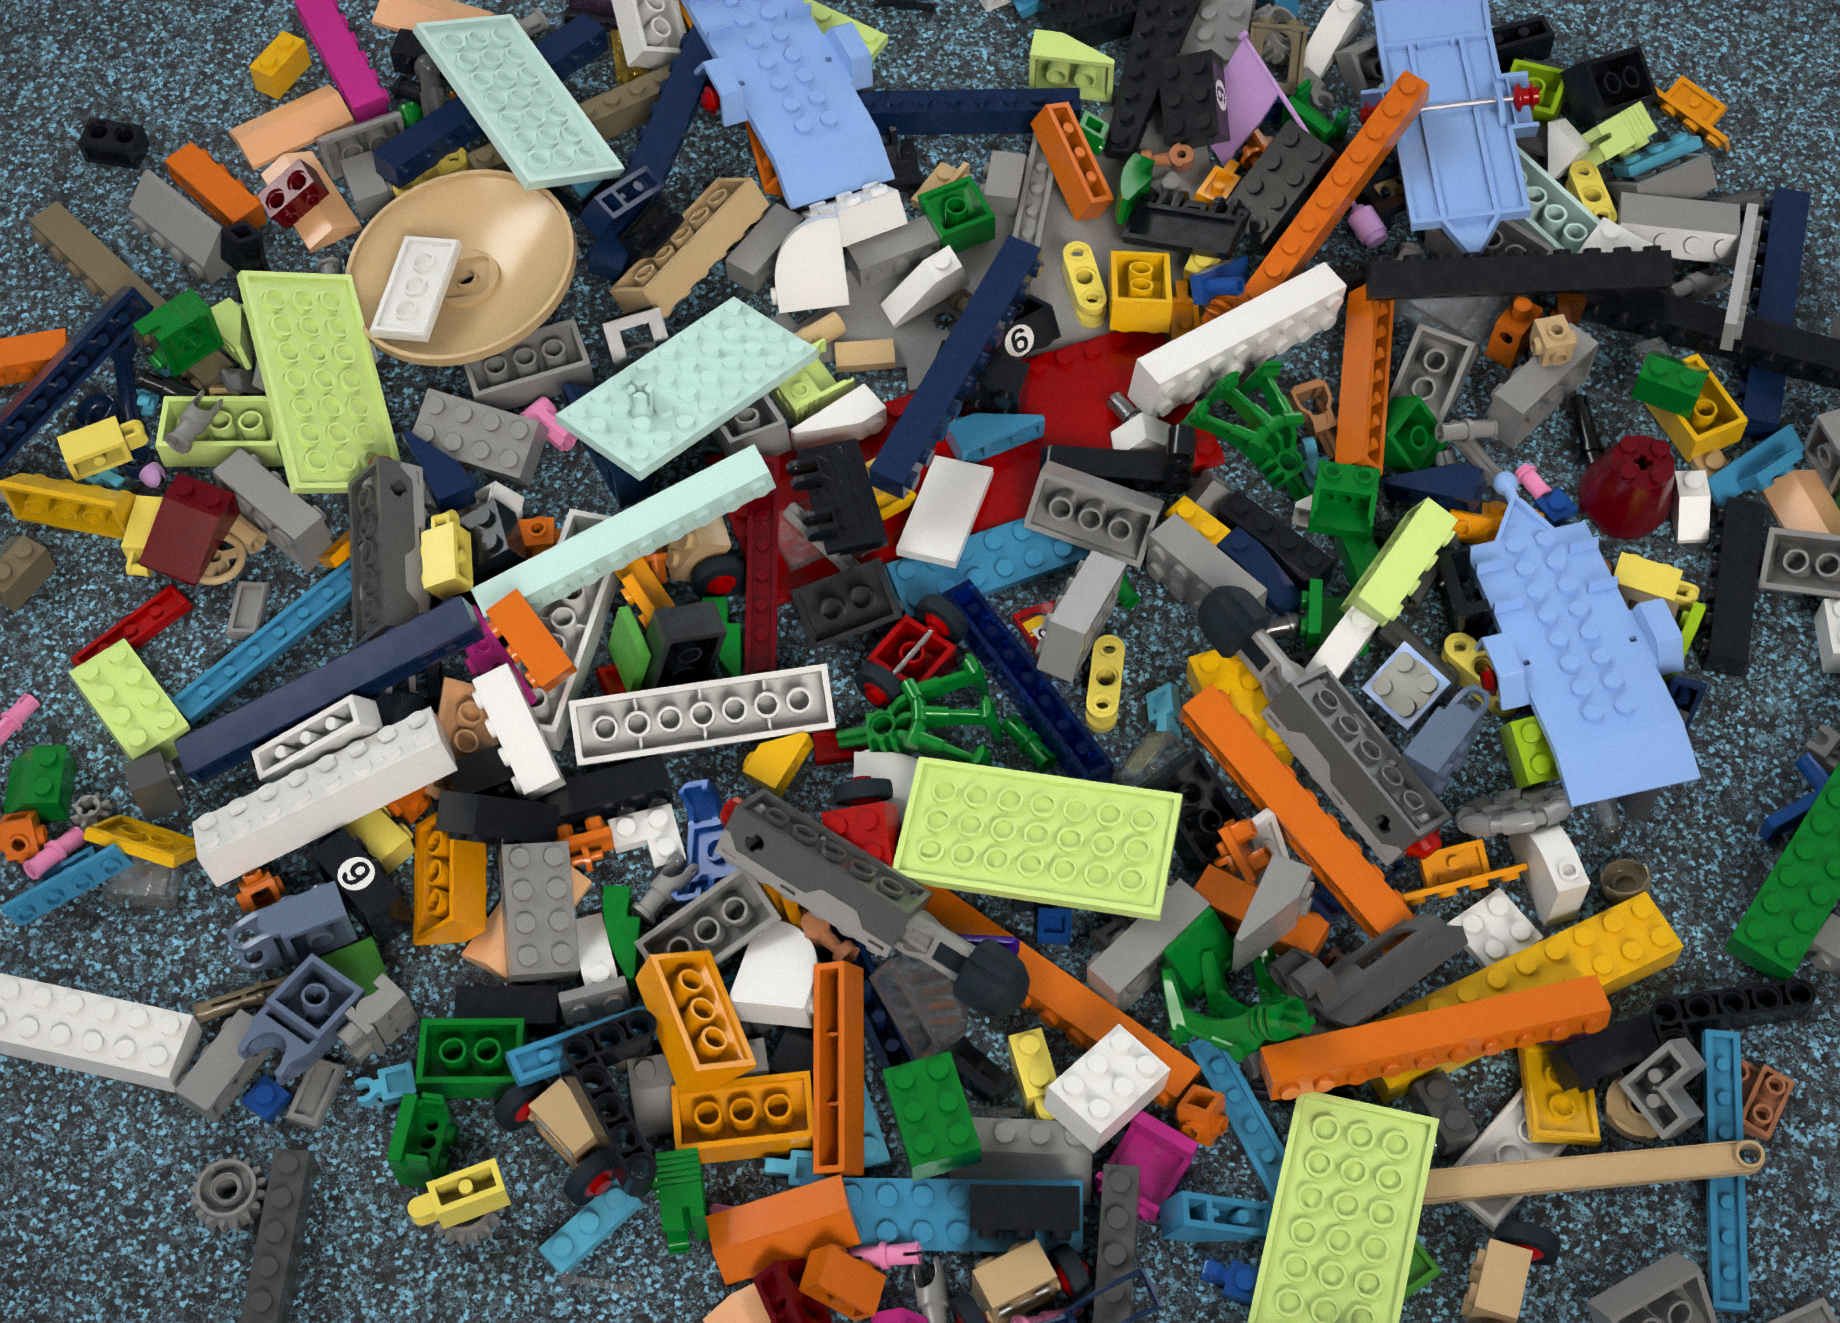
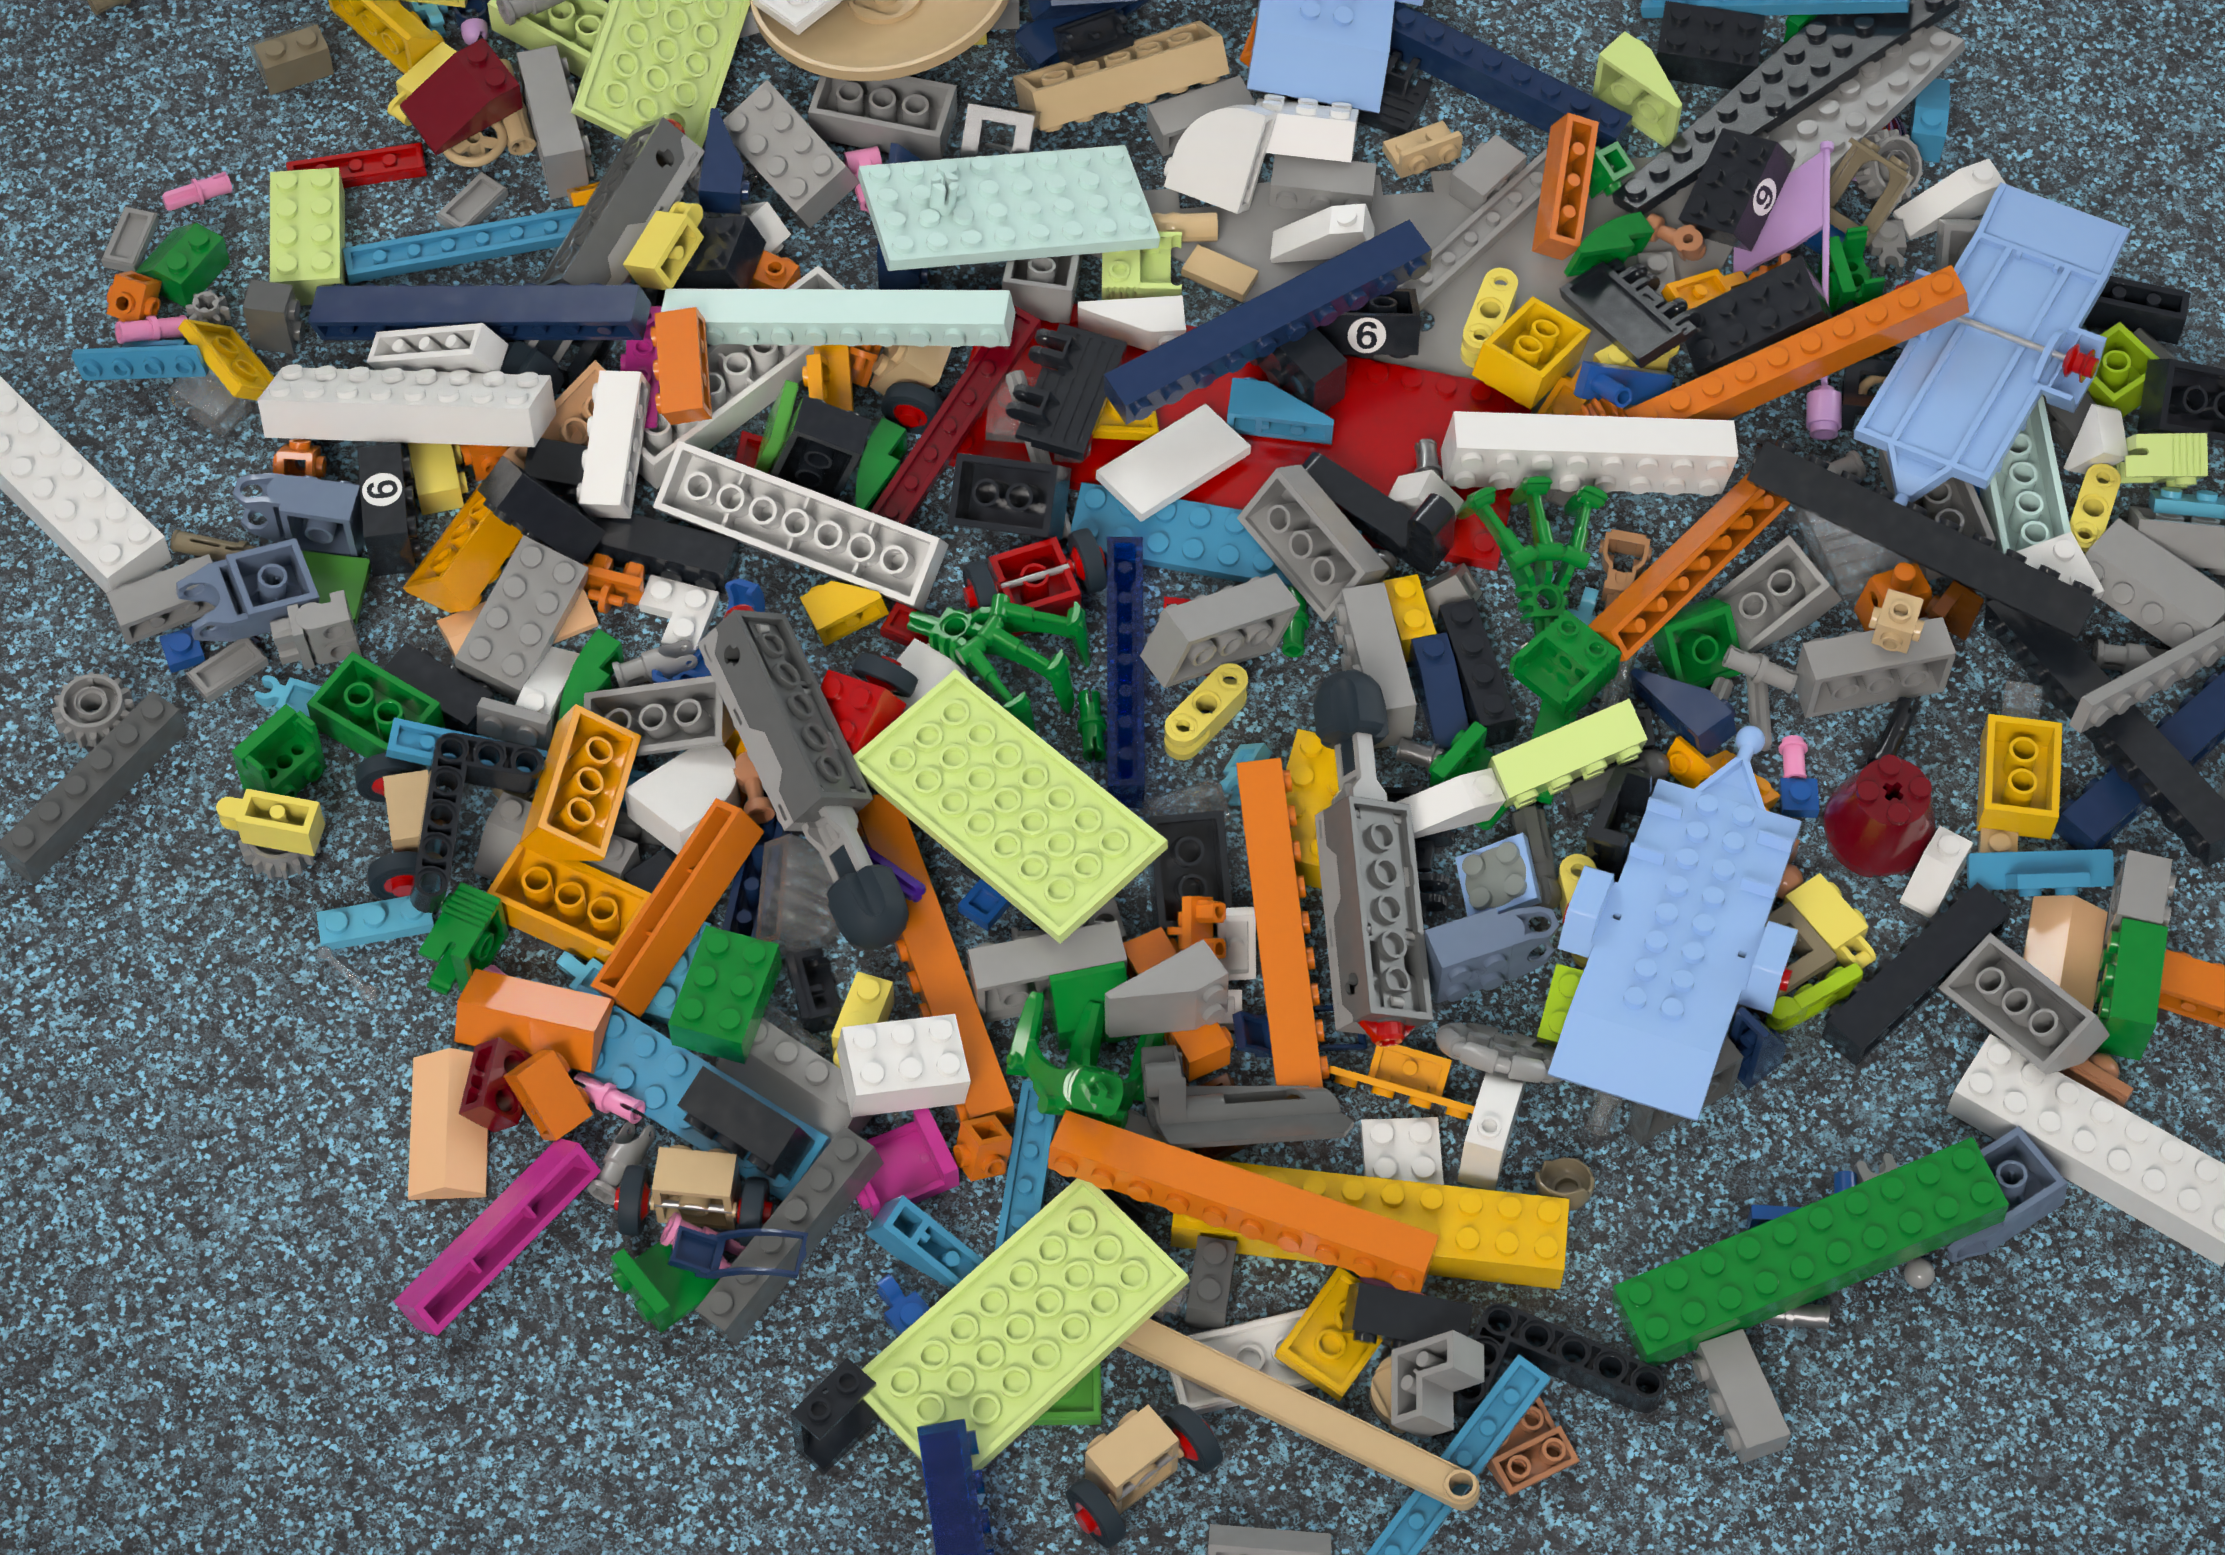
camera: 30 degrees right, 0 degrees up
(958, 214) = (1409, 182): green slope -> none
(1670, 383) = (2001, 733): green slope -> none

